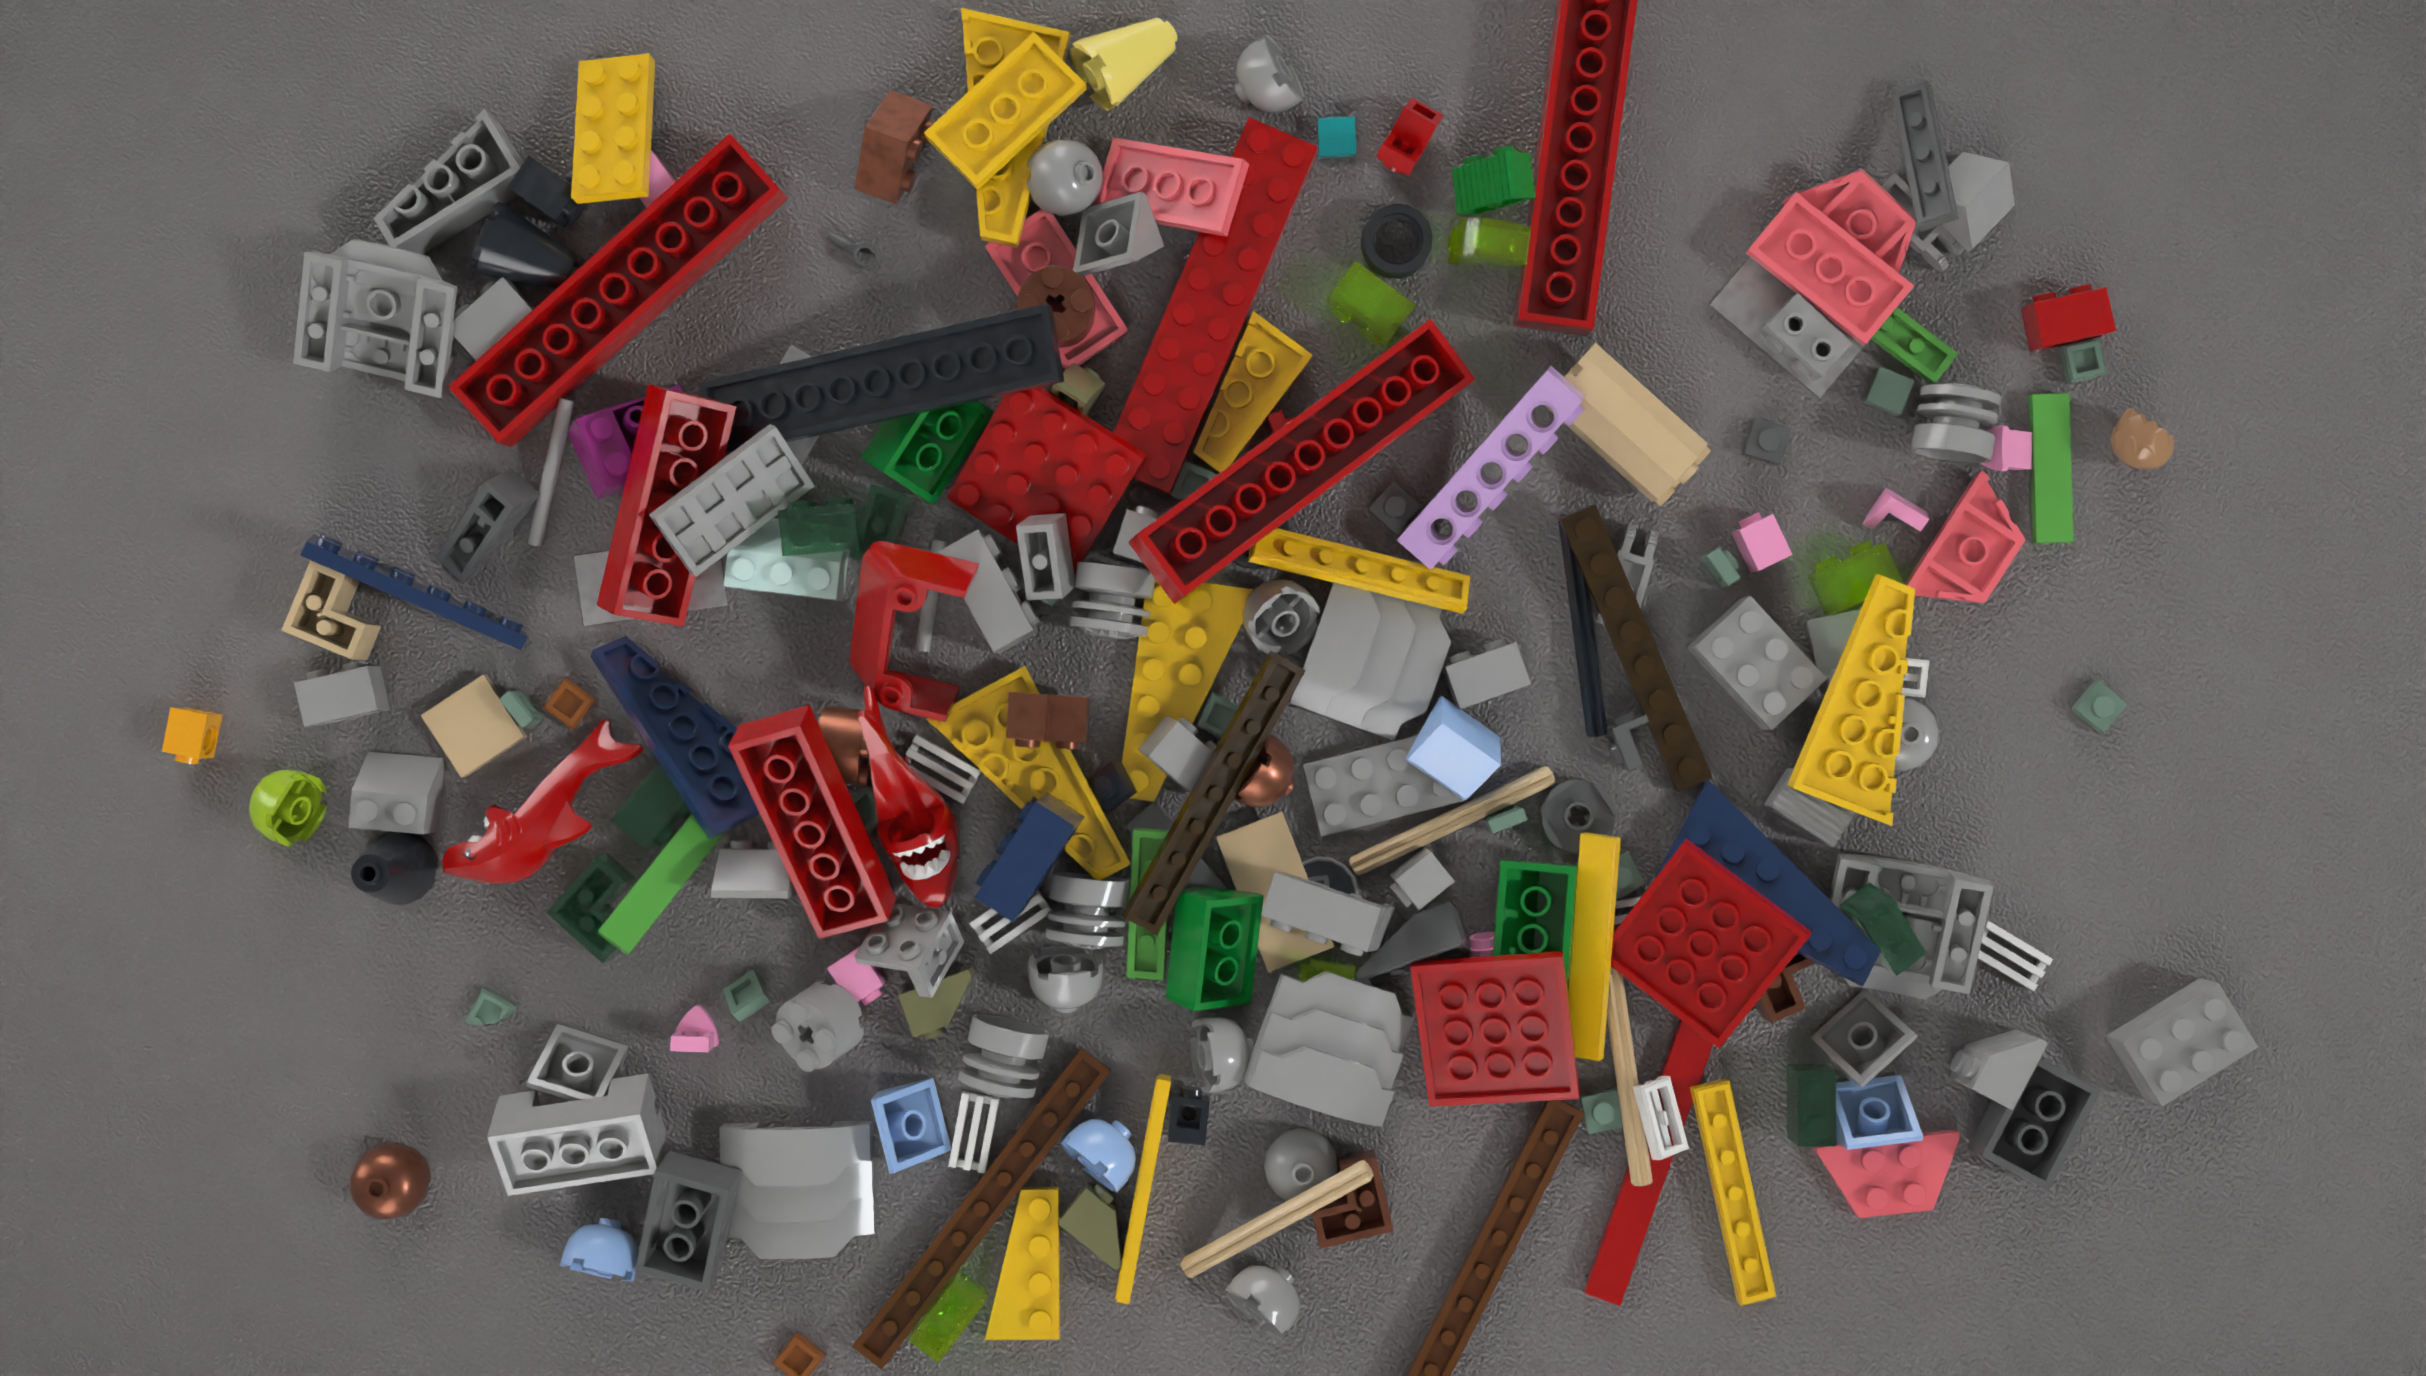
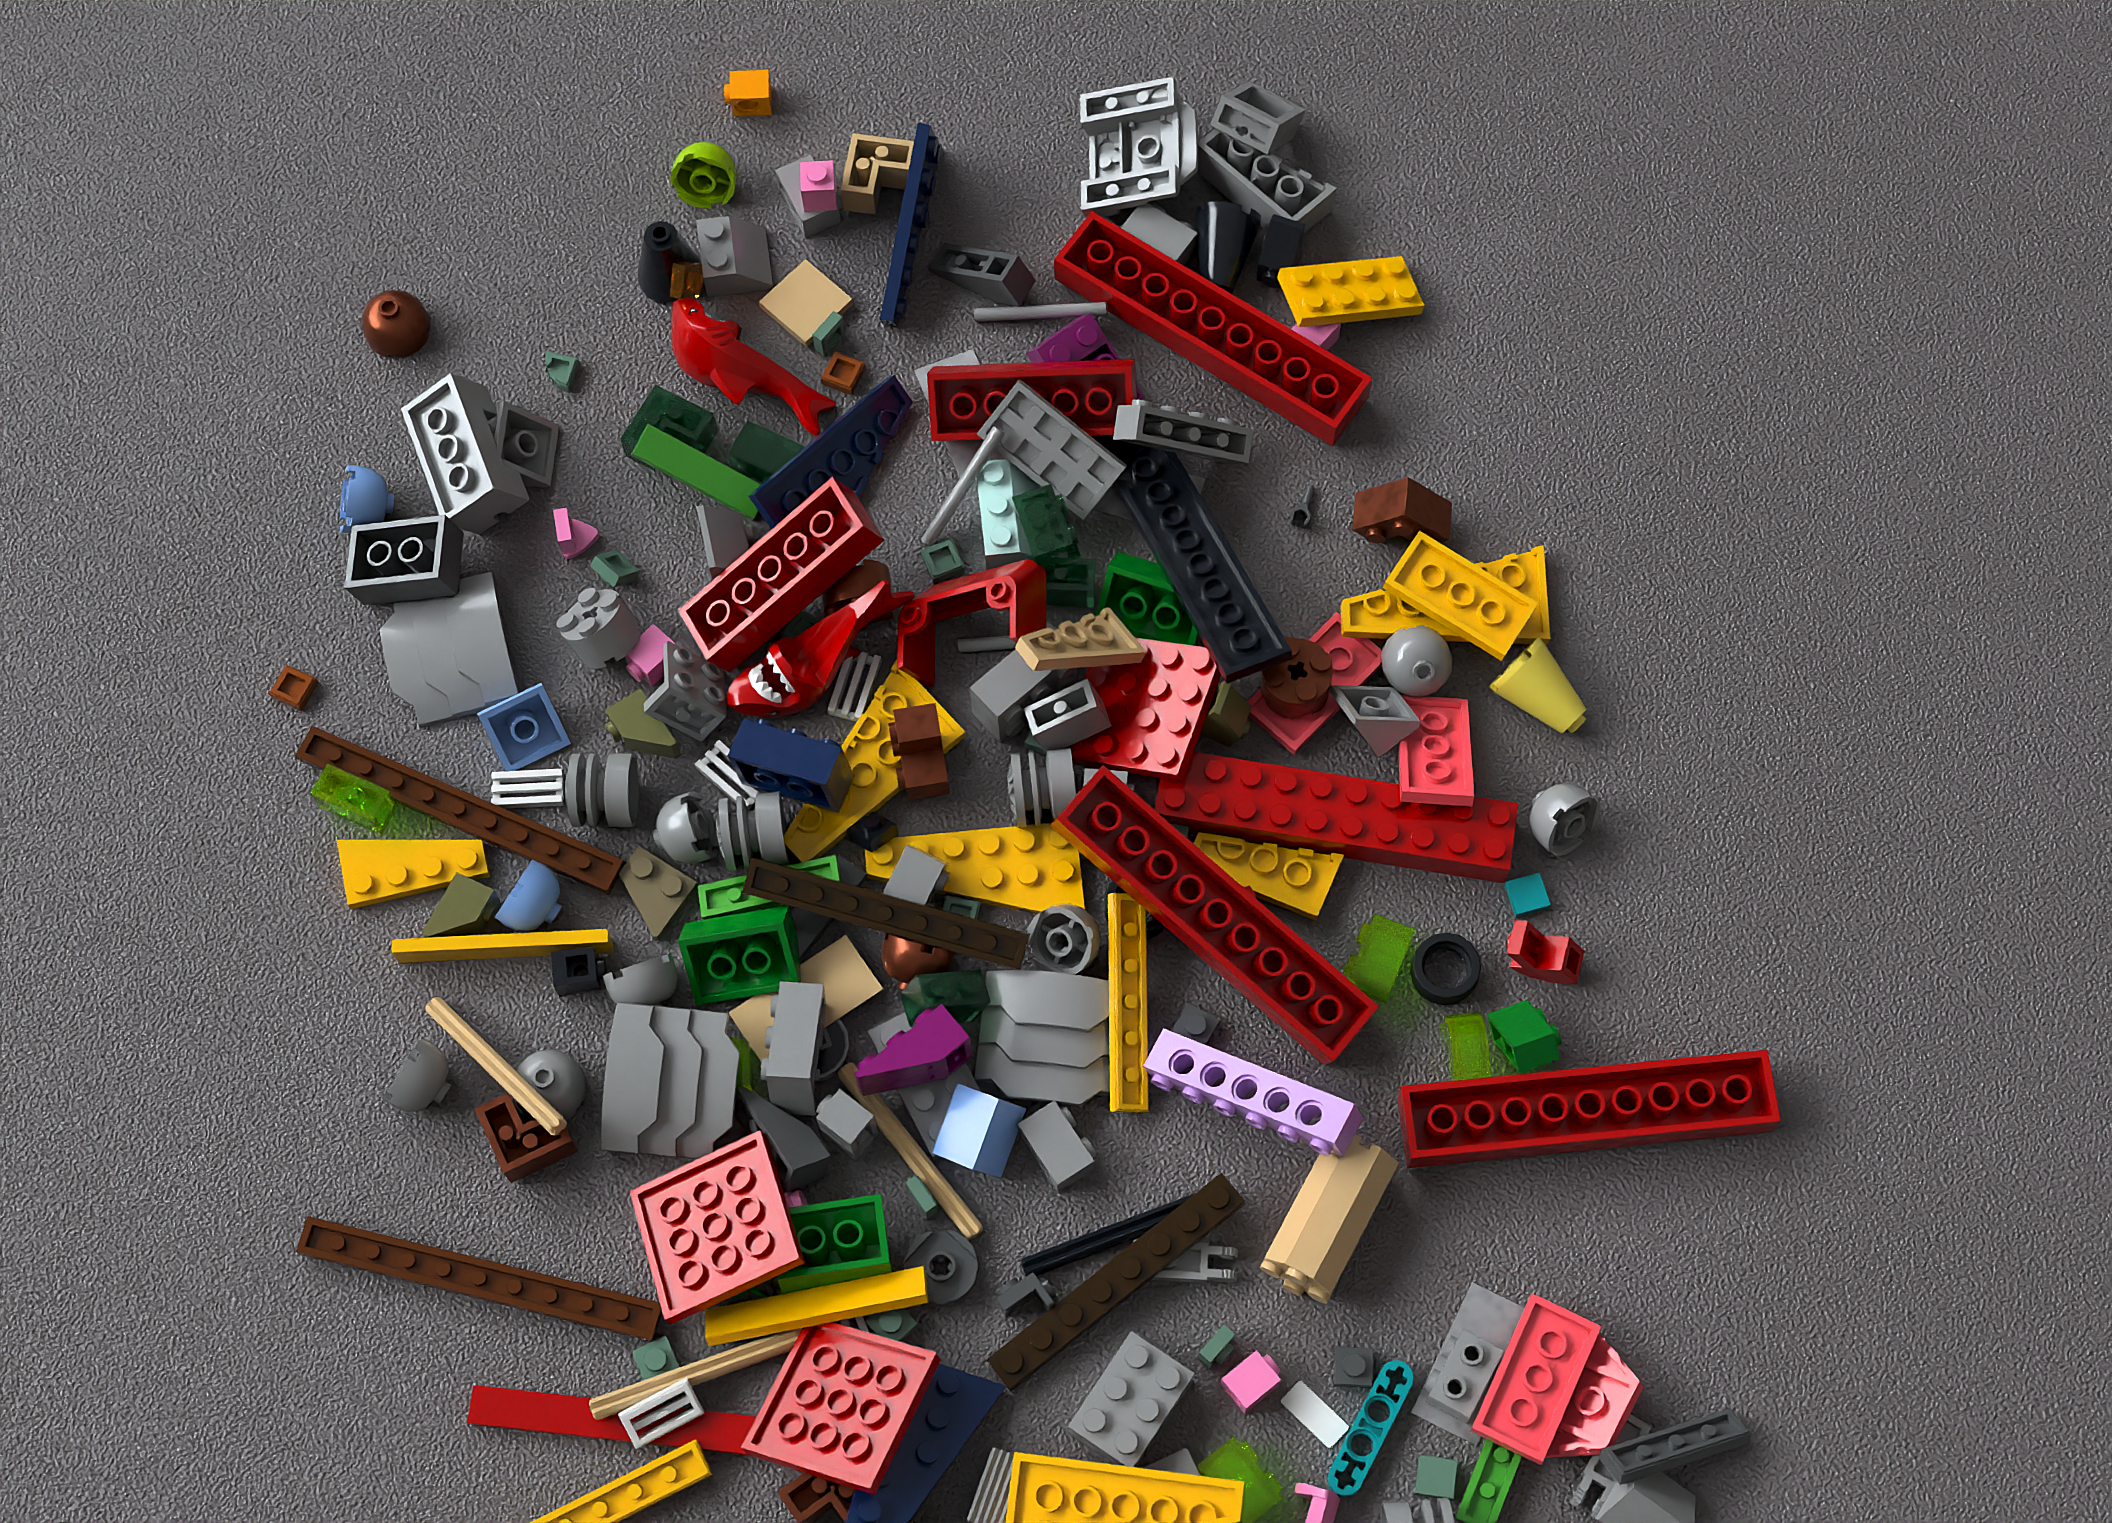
camera: 80 degrees right, 20 degrees down
(342, 683) = (818, 186): none -> bright pink brick
(363, 186) = (1267, 116): none -> light grey window
(423, 853) = (686, 280): none -> clear orange plate
(747, 604) = (963, 486): none -> light grey bar
(750, 354) = (1182, 433): none -> light grey brick
(820, 645) = (942, 561): none -> sand green tile
(975, 522) = (1087, 643): none -> tan wing
(1117, 1020) = (656, 889): none -> dark tan wing
(1313, 751) = (959, 992): none -> clear green brick
(1375, 786) = (917, 1057): none -> magenta slope
(1799, 490) = (1314, 1414): none -> white sticker
(1832, 436) = (1367, 1427): none -> teal beam

